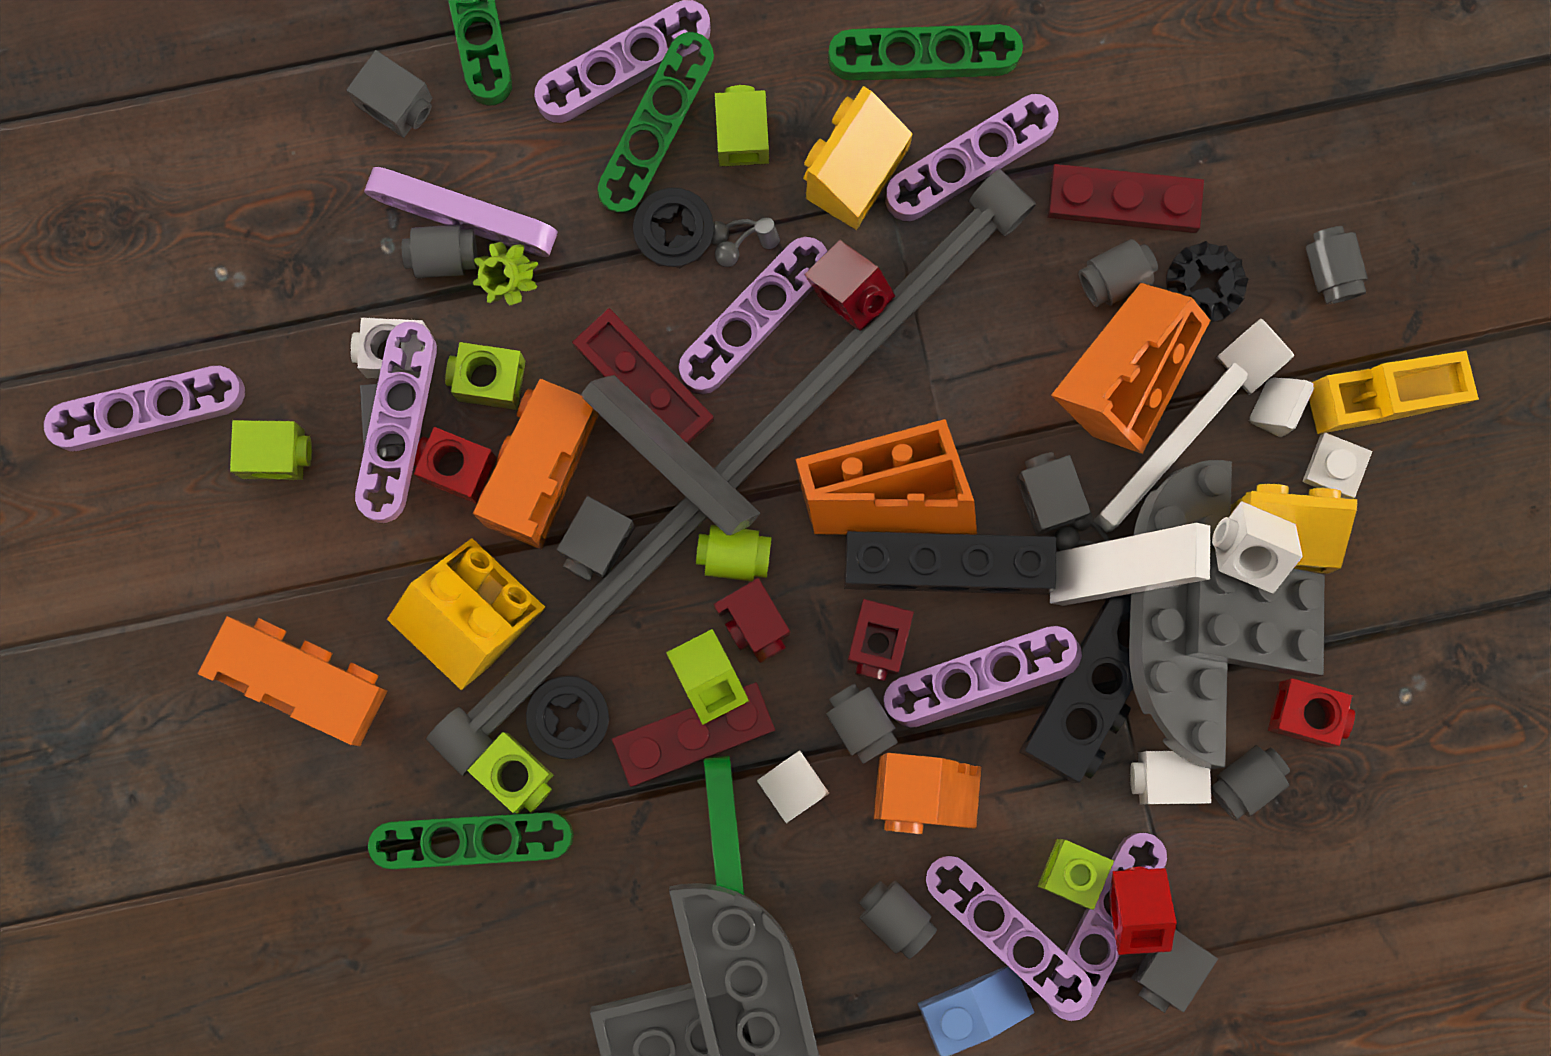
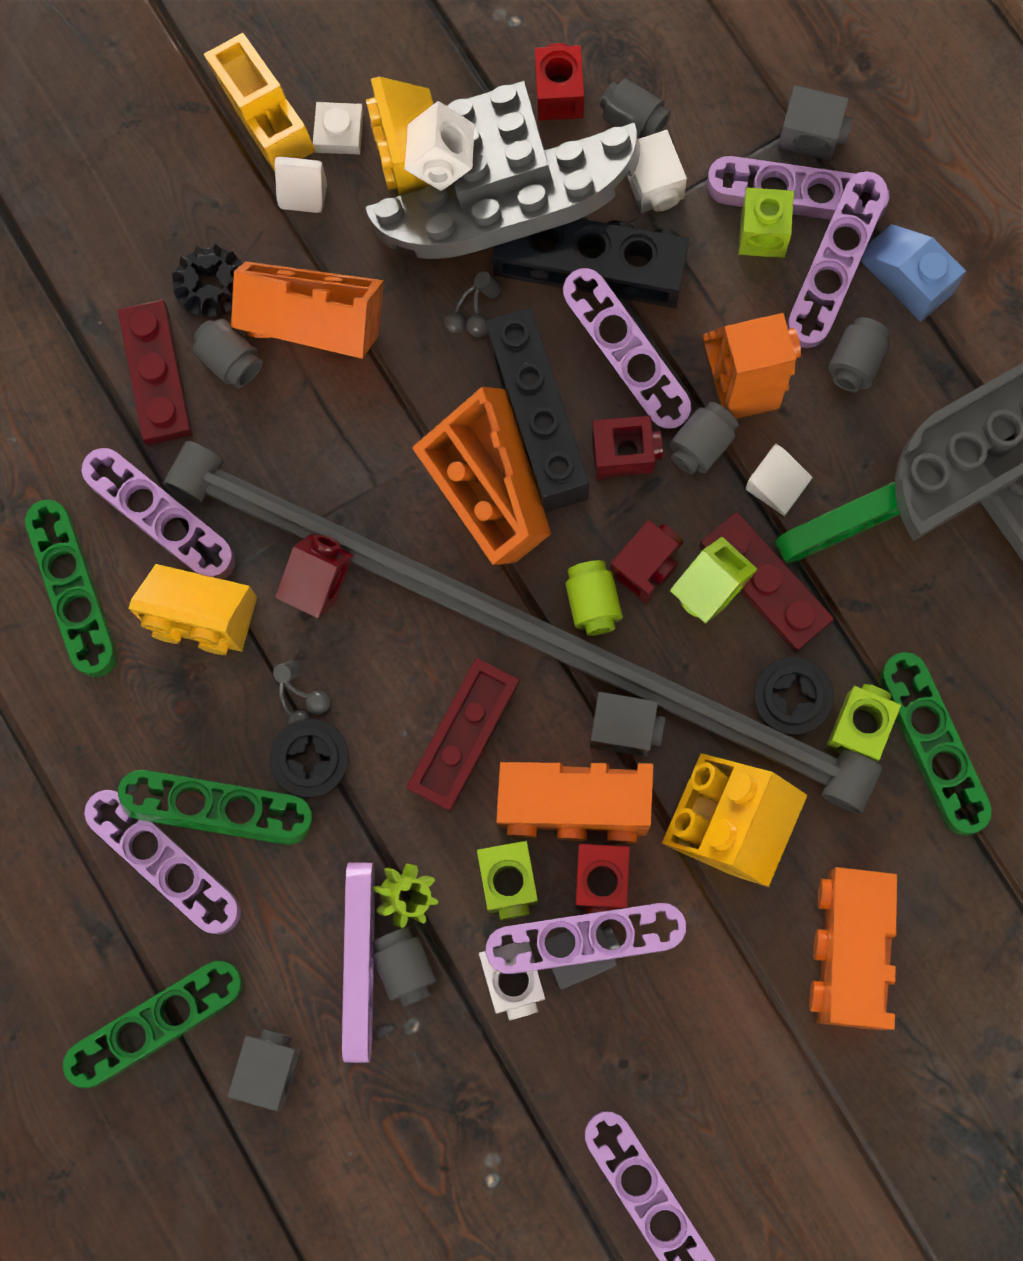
camera: 100 degrees left, 5 degrees down
(269, 450) = (649, 1059): lime brick -> none
(670, 454) = (527, 676): dark grey tile -> none
(742, 126) = (193, 726): lime brick -> none
(747, 309) = (365, 663): lavender beam -> none
(1052, 492) = (444, 345): dark grey brick -> none
(1133, 564) = (489, 236): white tile -> none
(1142, 910) = (778, 152): red brick -> none
(1171, 448) = (369, 260): white tile -> none
(1258, 353) = (263, 220): white slope -> none
(1337, 265) = (161, 176): dark grey brick -> none

